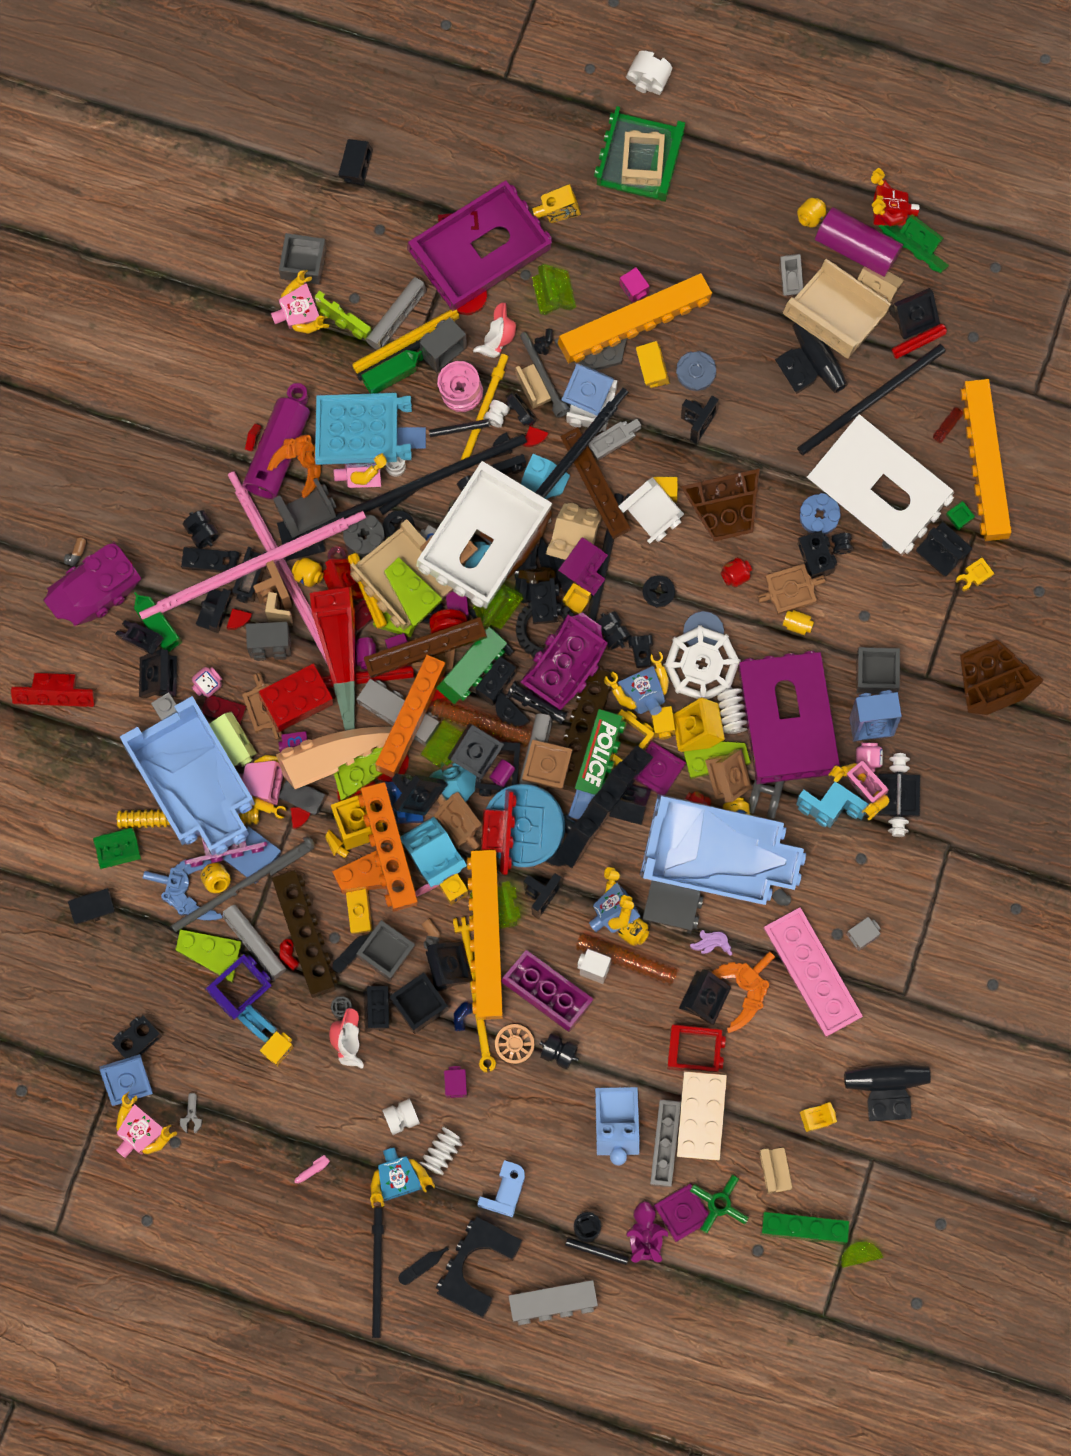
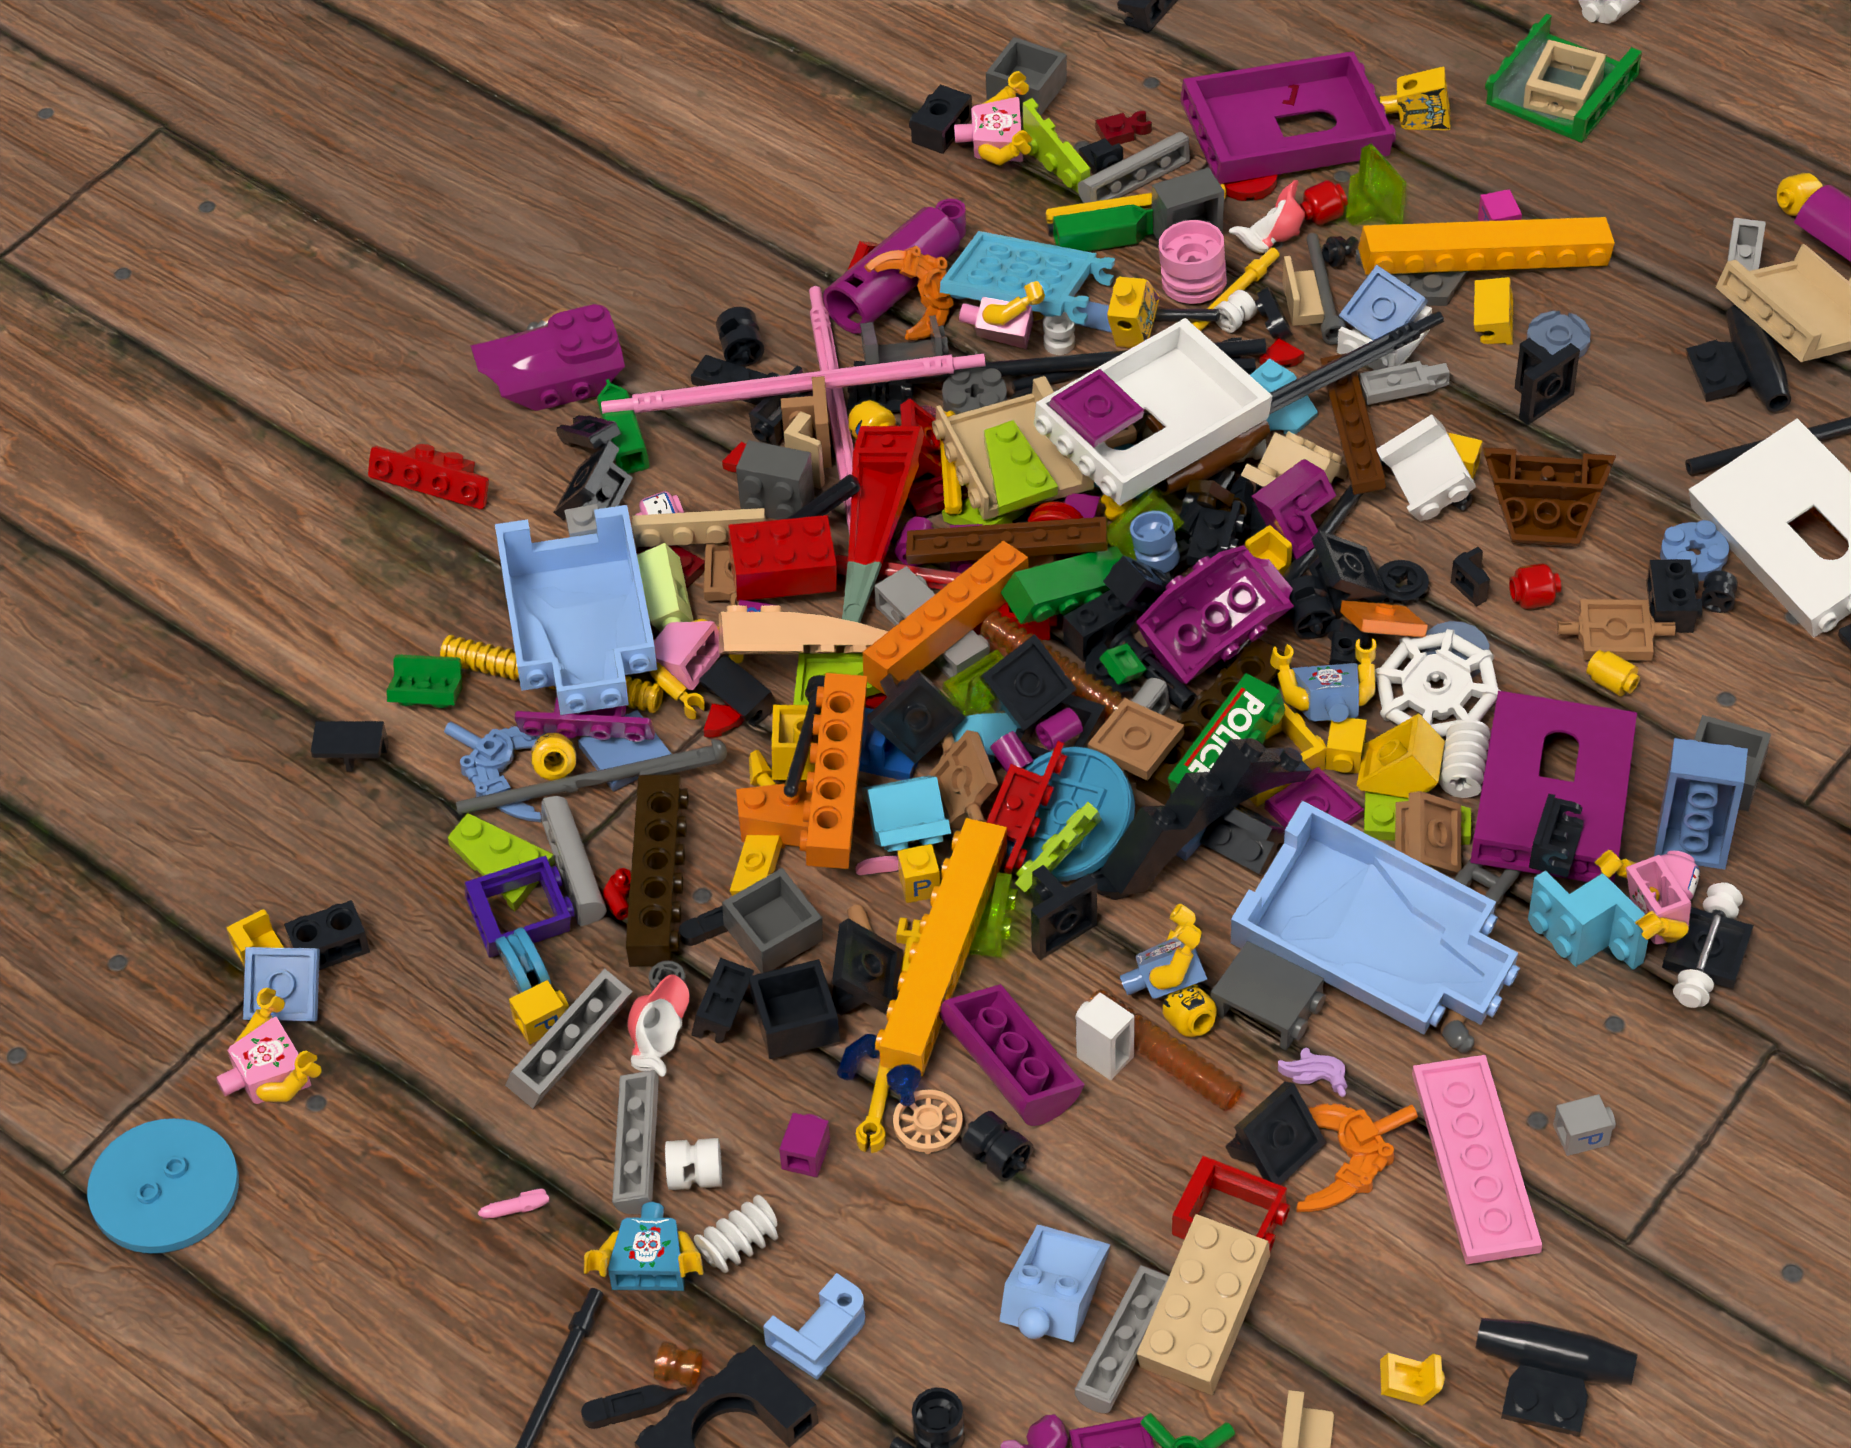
camera: 20 degrees right, 25 degrees down
(97, 1054) = (252, 932): none -> yellow panel
(115, 1222) = (163, 1185): none -> dark azure plate
(191, 1114) = (359, 1070): light grey bar -> none
(214, 610) = (716, 437): black panel -> none
(229, 694) = (690, 526): none -> tan plate
(259, 318) = (935, 120): none -> black brick
(302, 1062) = (568, 1038): none -> light grey brick
(303, 650) = (830, 498): none -> black axle
(353, 789) = (805, 738): none -> black piece
(363, 1111) = (635, 1141): none -> light grey brick
(371, 307) = (1101, 155): none -> black bracket
(373, 279) = (1122, 129): none -> dark red plate
(434, 1237) = (678, 1364): none -> clear orange wheel
(437, 438) = (1133, 304): none -> yellow torso
(454, 552) = (1096, 407): none -> magenta tile
(480, 796) = (1011, 751): none -> magenta piece
(495, 1028) = (904, 1082): none -> clear blue rock
(512, 621) = (1155, 540): none -> medium blue wheel
(515, 656) = (1136, 583): none -> black brick
(520, 709) = (1122, 664): none -> green plate
(523, 308) = (1324, 202): none -> red head
(528, 855) = (1060, 845): none -> lime wing
(627, 600) = (1346, 571): none -> black bracket
(658, 628) = (1383, 618): none -> orange plate
(698, 579) = (1469, 576): none -> black bracket
(803, 765) = (1556, 837): none -> black hinge

